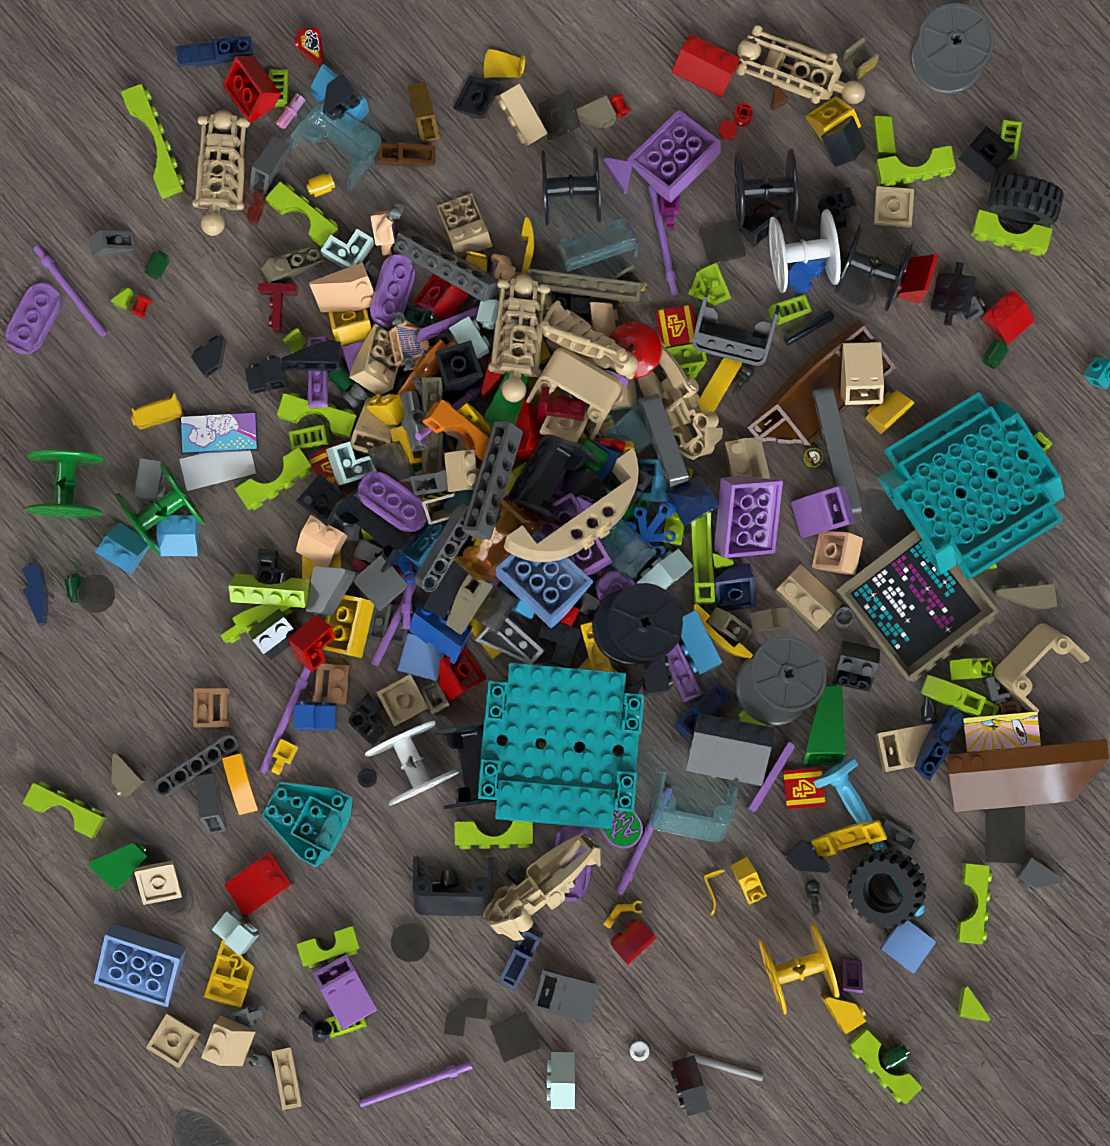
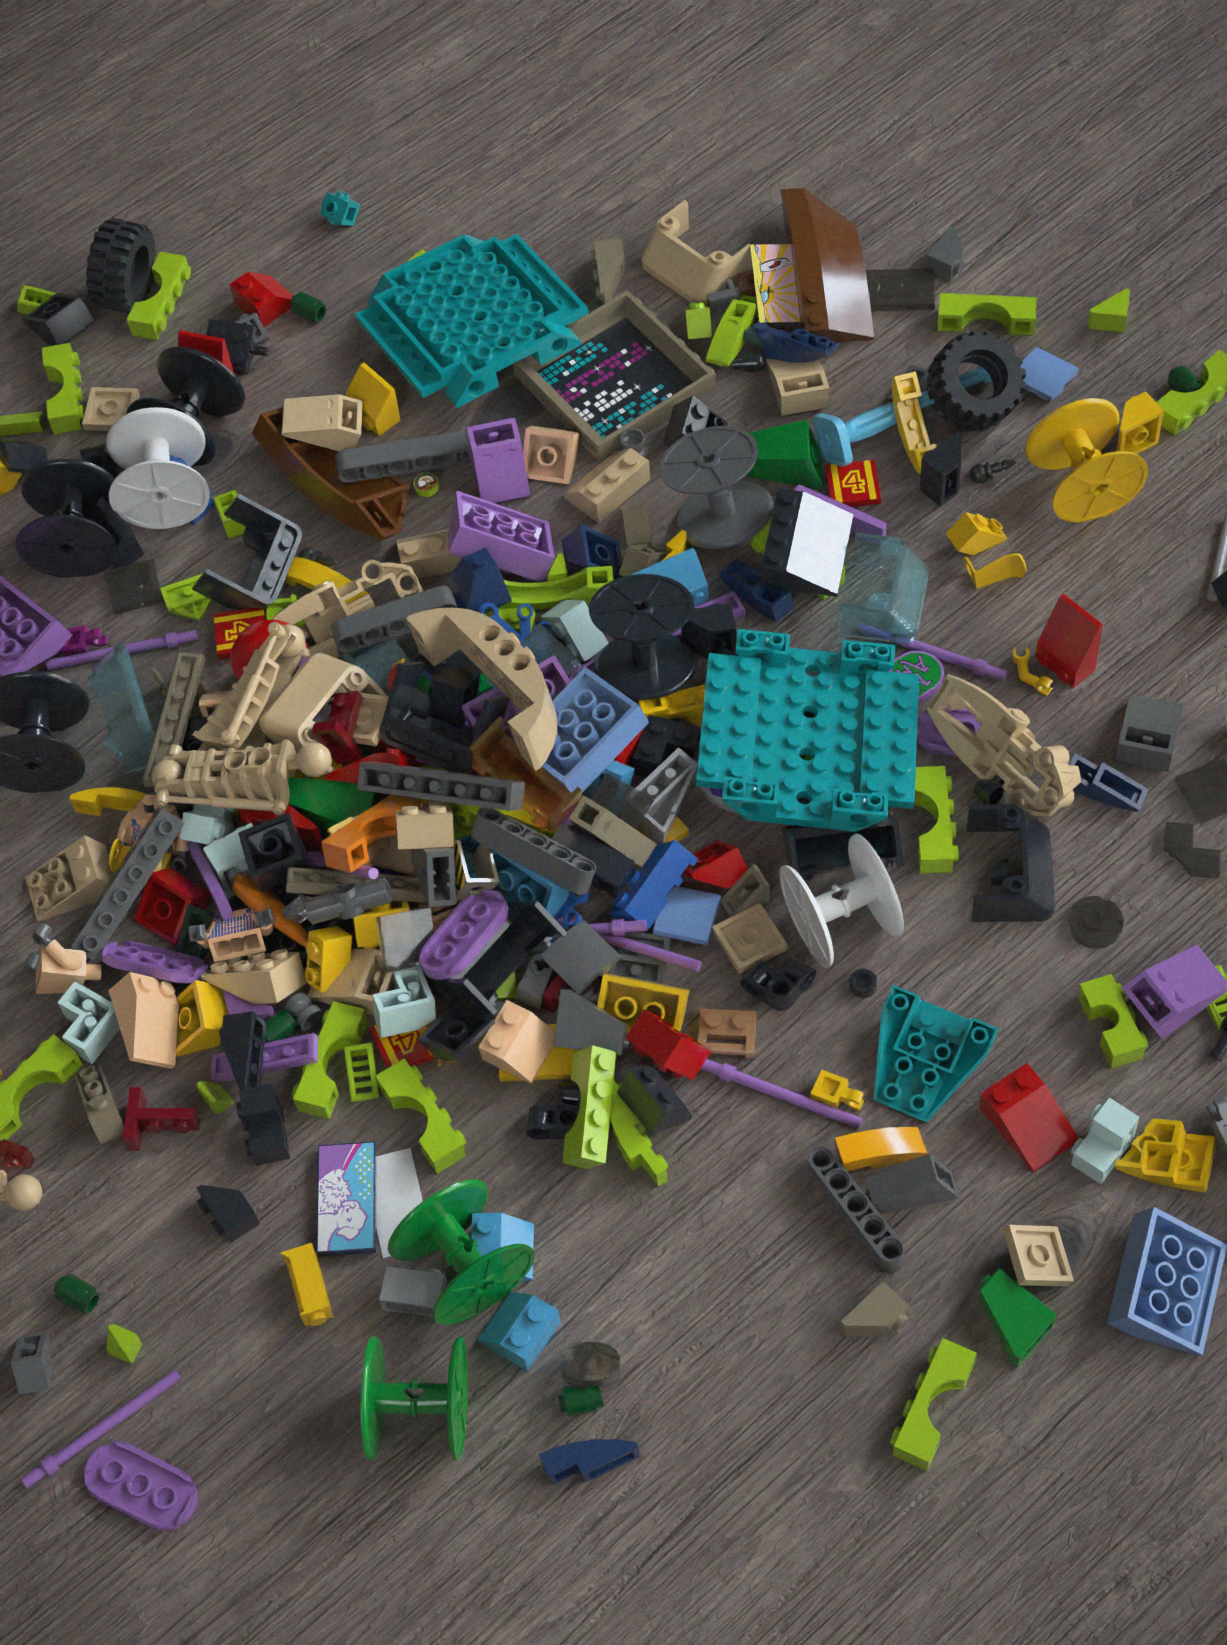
camera: 85 degrees left, 25 degrees down
(141, 306) = (139, 1315): red bush -> none
(204, 707) = (767, 1202): medium nougat plate -> none
(315, 717) = (776, 1047): blue brick -> none
(639, 1050) = (1212, 649): white tile -> none
(808, 328) = (254, 487): black axle -> none

